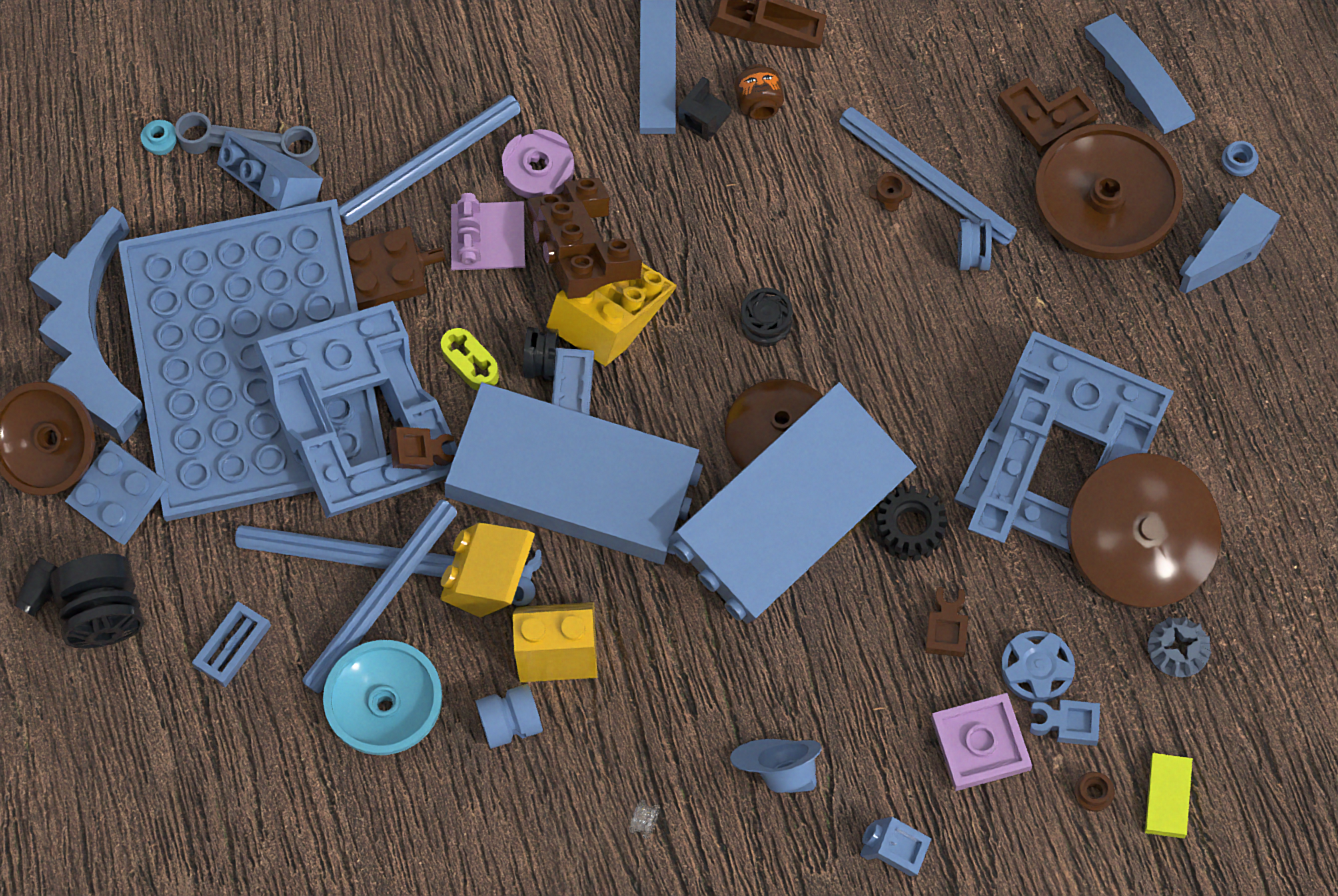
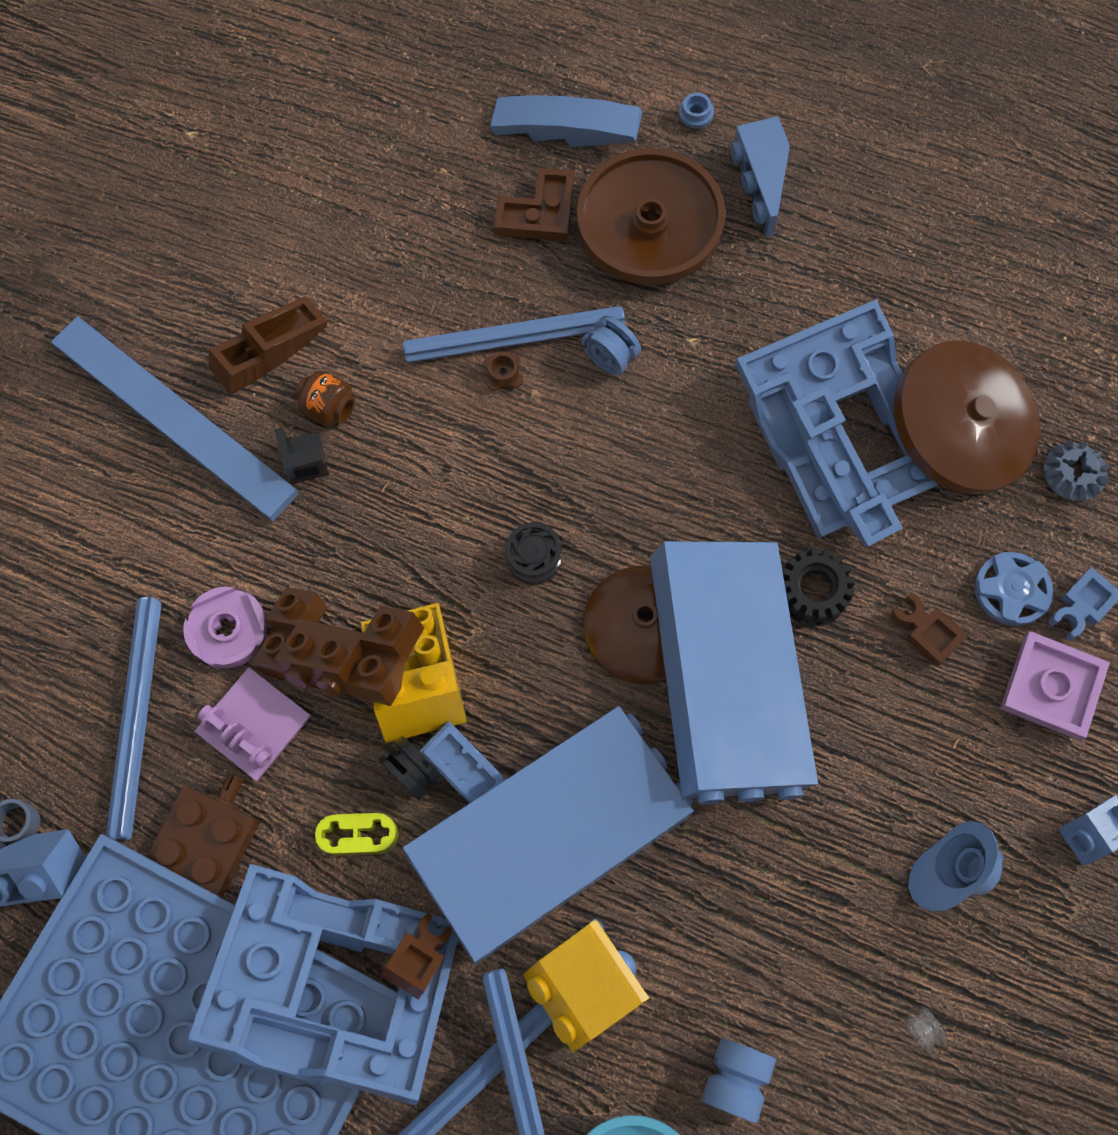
camera: 50 degrees left, 5 degrees up
(555, 642) = (697, 972): yellow slope -> none

